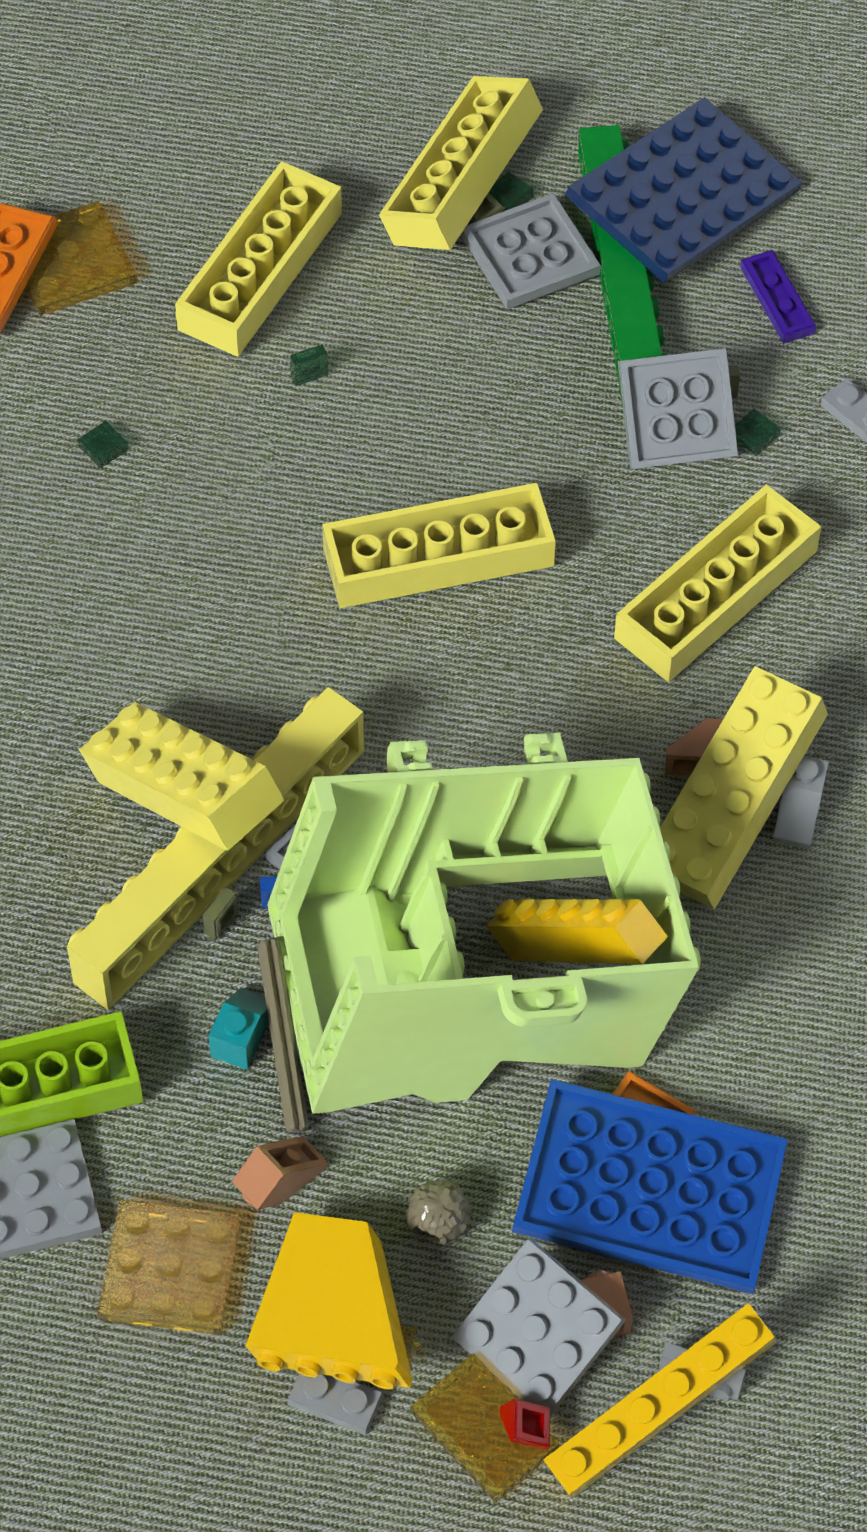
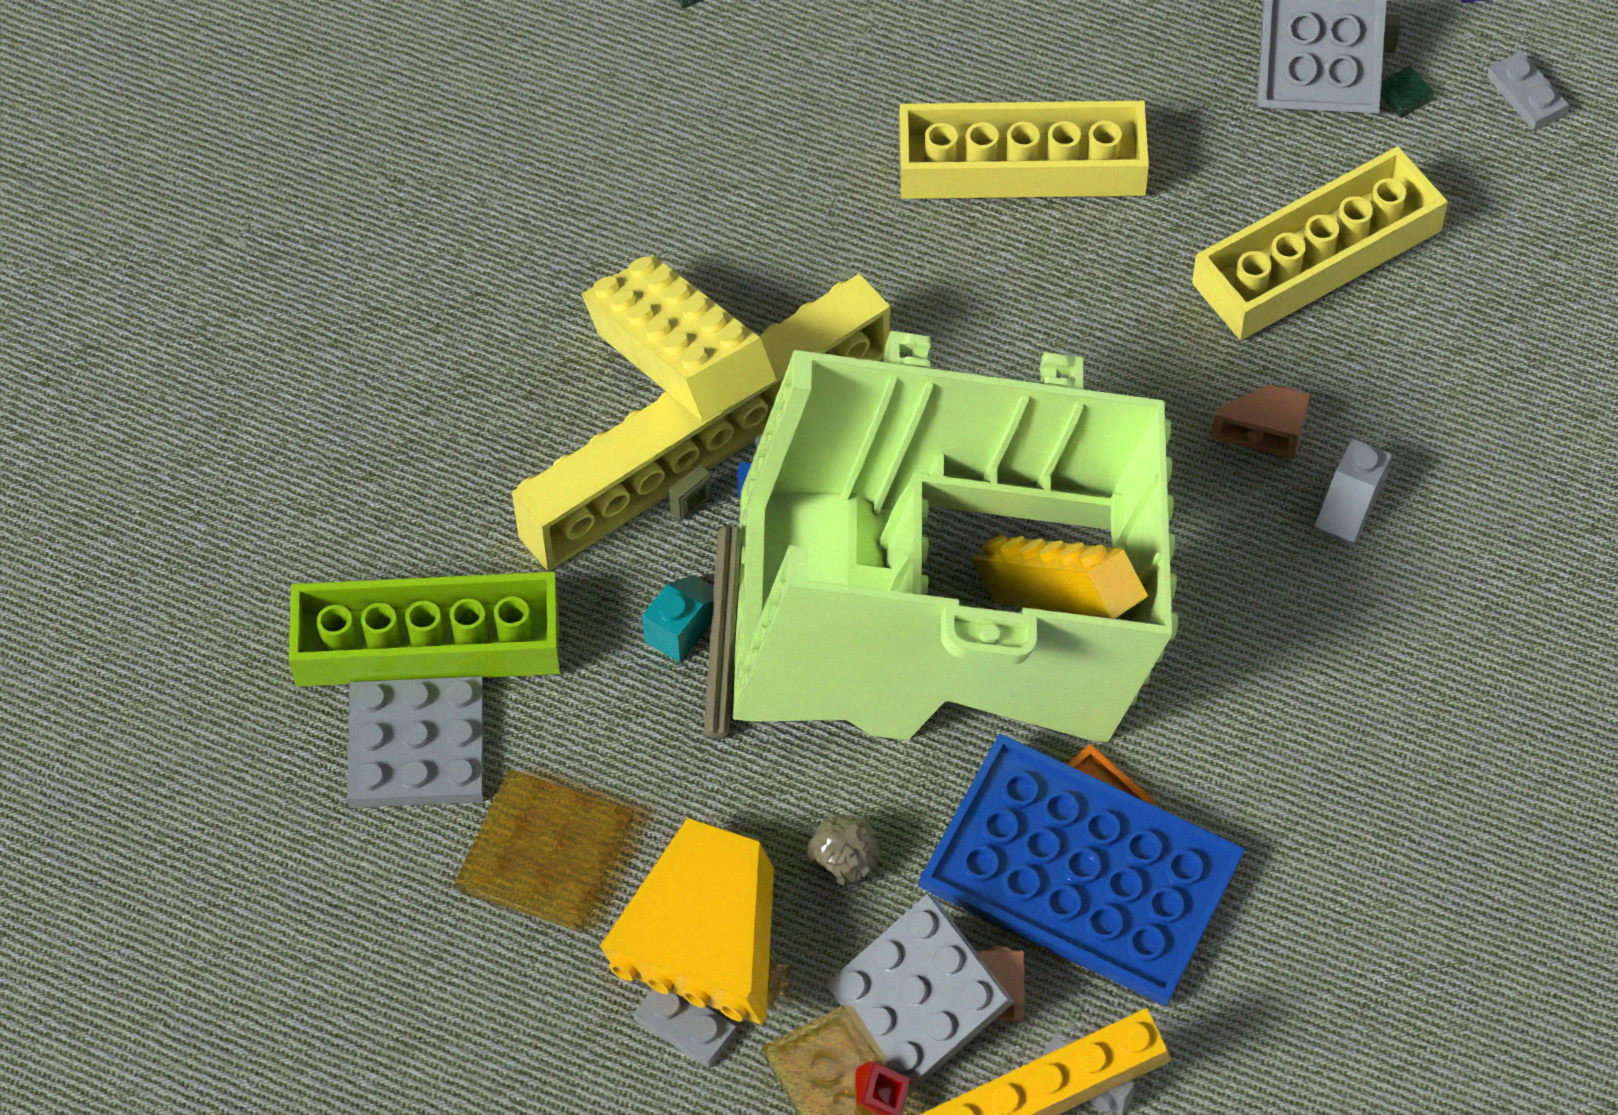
camera: 15 degrees right, 0 degrees up
(278, 1171) = (683, 773): nougat slope -> none
(739, 782) = (1280, 460): light yellow brick -> none

